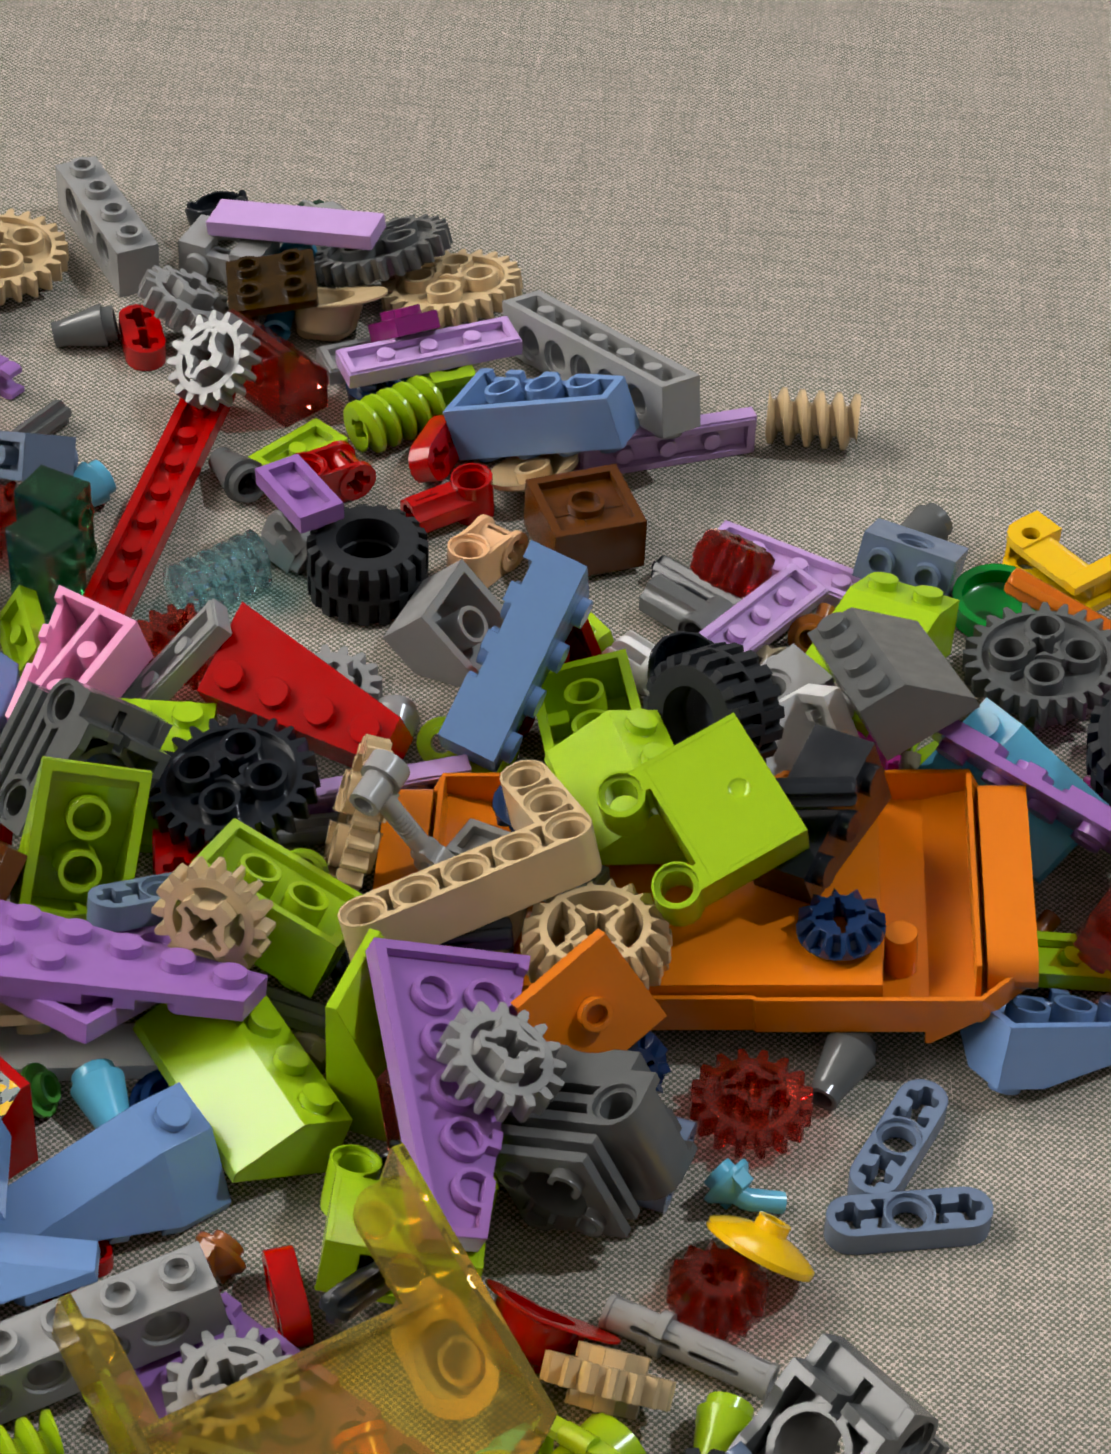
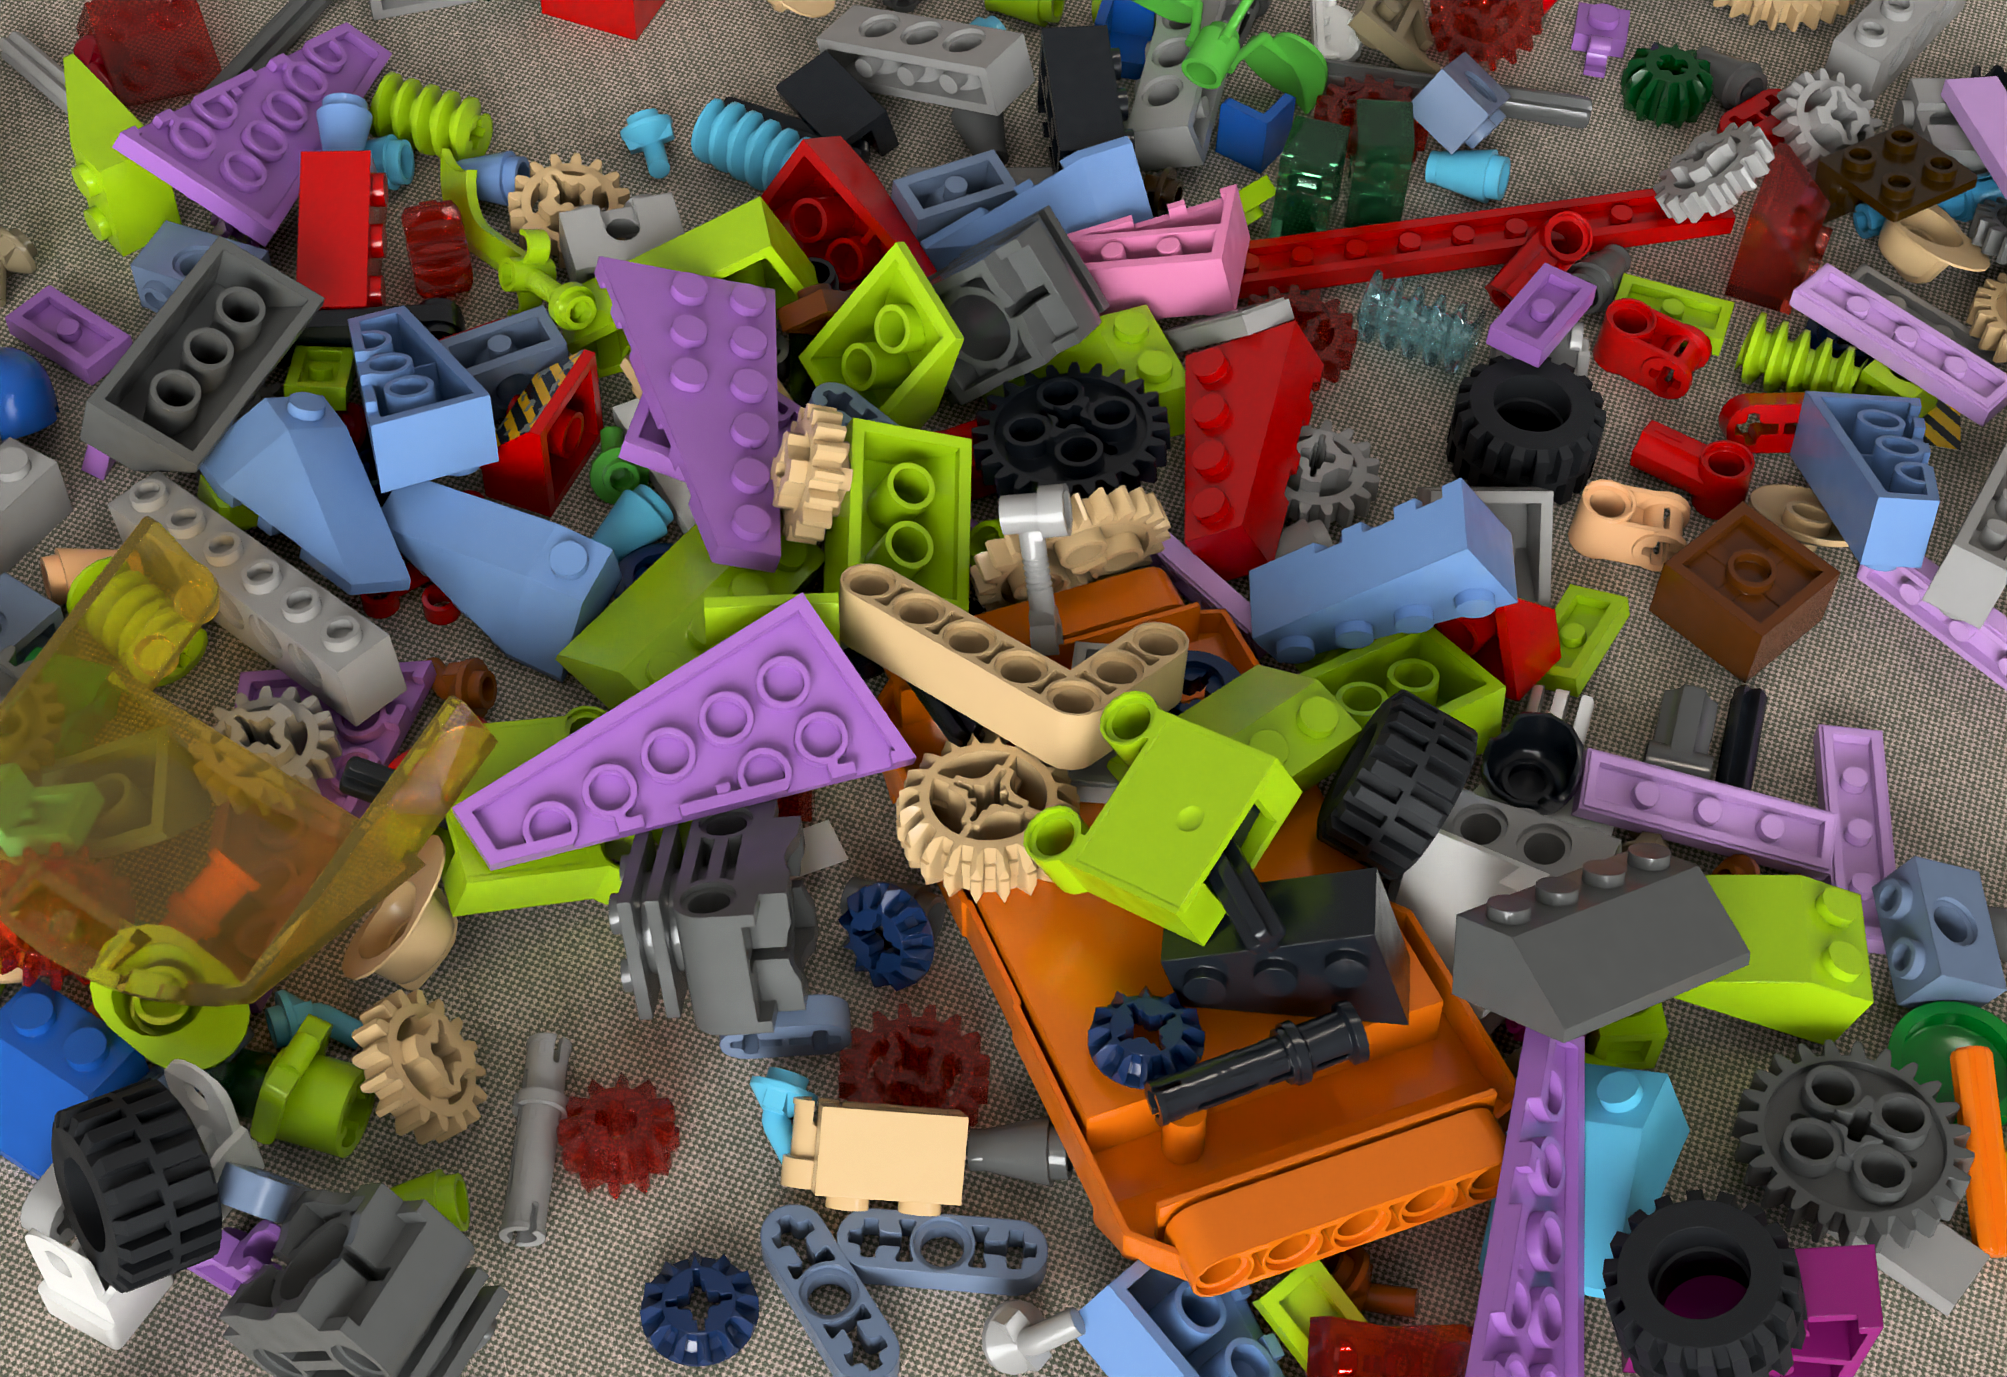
camera: 65 degrees right, 10 degrees up
(73, 358) = (1666, 85): none -> dark green gear
(207, 480) = (1539, 250): none -> red piece
(403, 322) = (1931, 303): magenta plate -> none
(501, 1061) = (681, 787): light grey gear -> none
(542, 1328) = (488, 984): red piece -> none
(591, 999) = (868, 838): orange plate -> none
(731, 562) = (1784, 752): clear red gear -> none
(763, 1243) = (685, 1153): yellow dish -> none
(824, 1132) = (877, 1155): none -> hinge
(898, 1316) = (728, 1325): none -> dark blue gear
(900, 853) = (1288, 1055): none -> black pin
(994, 1123) = (1021, 1339): none -> light grey plate

